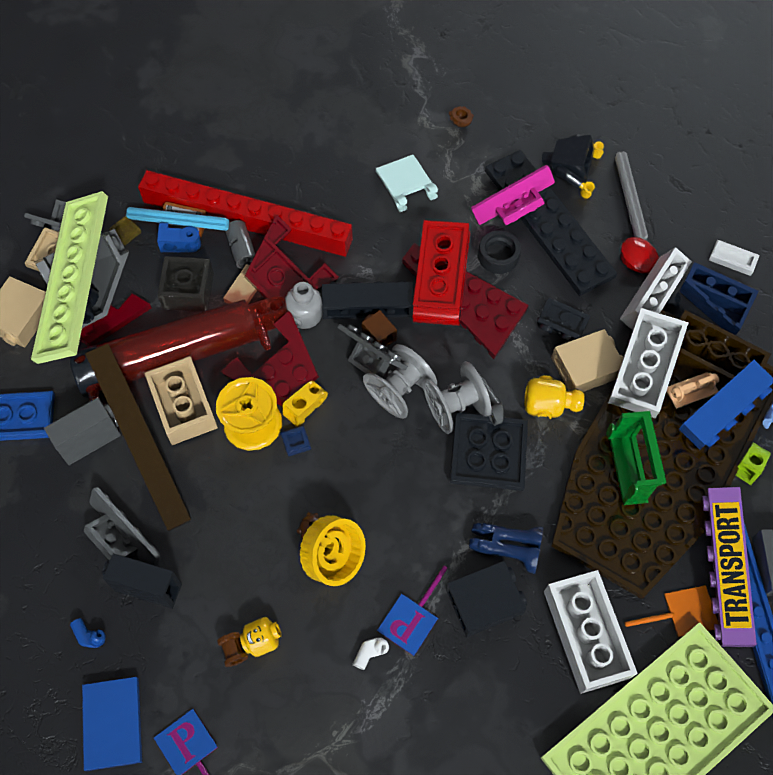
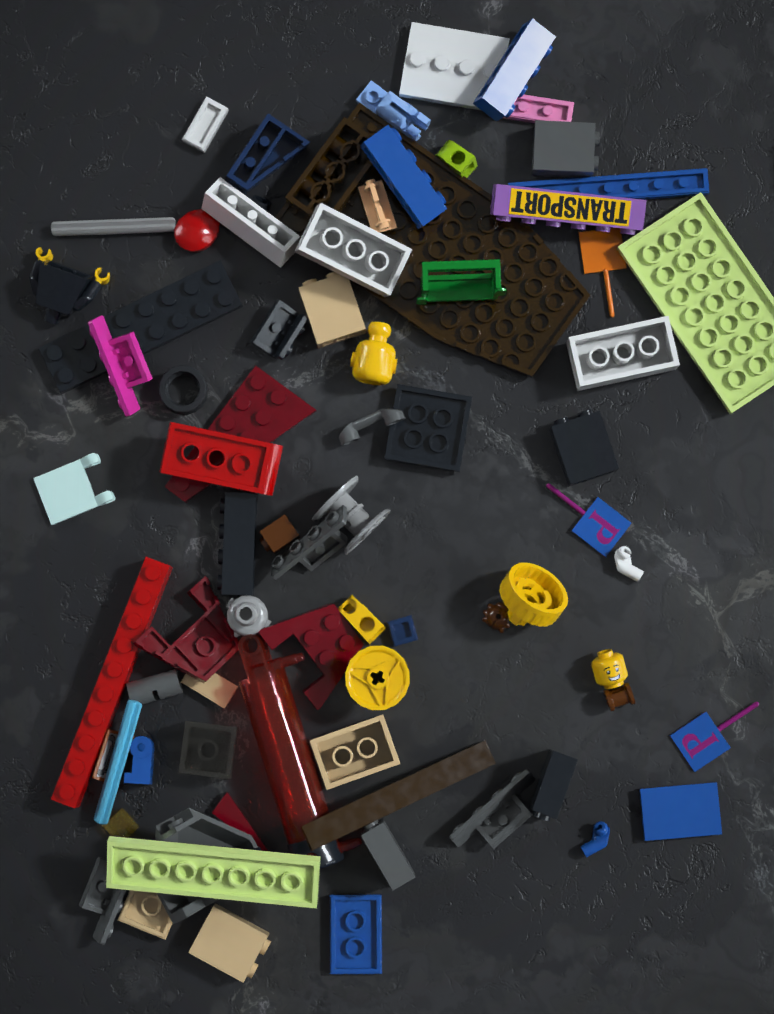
camera: 85 degrees left, 20 degrees up
(457, 397) = (369, 443): light grey piece -> none
(494, 546) = (531, 434): dark blue piece -> none

